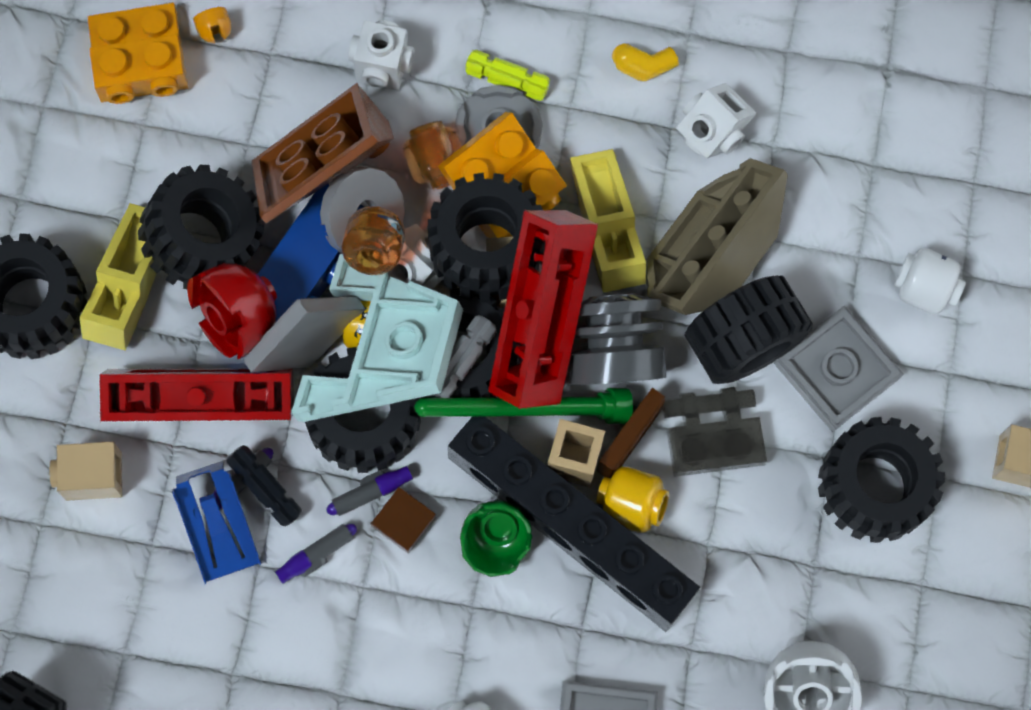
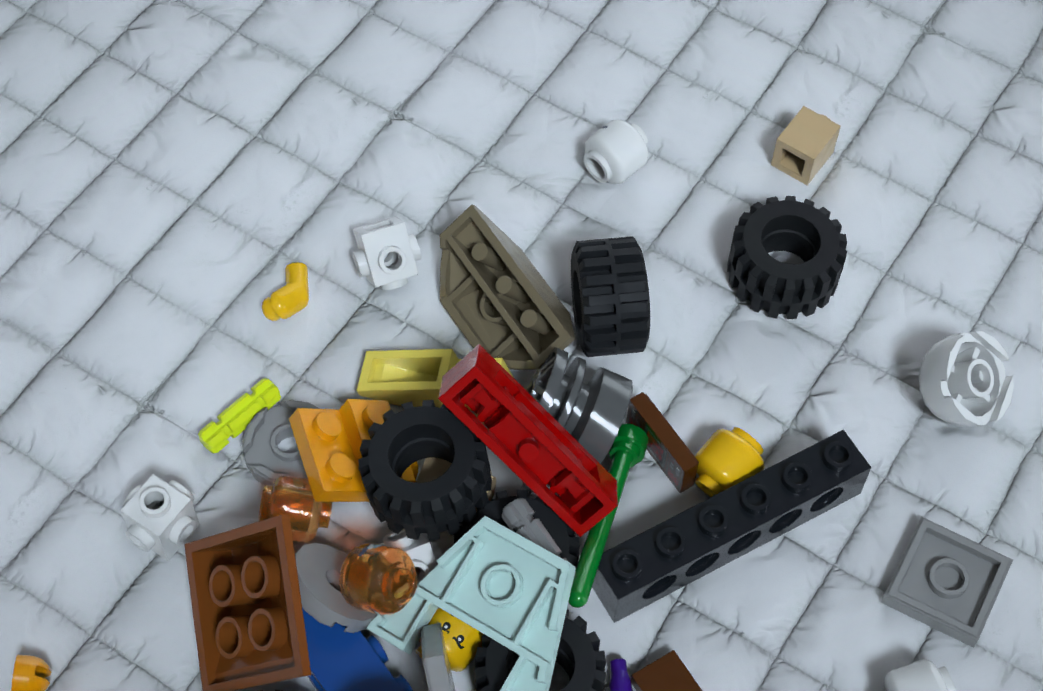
camera: 65 degrees left, 15 degrees down
(495, 538) = (722, 598): green hair -> none
(575, 452) = (665, 489): tan brick -> none
(714, 445) = (700, 375): clear smoke plate -> none
(838, 369) = (672, 252): light grey tile -> none

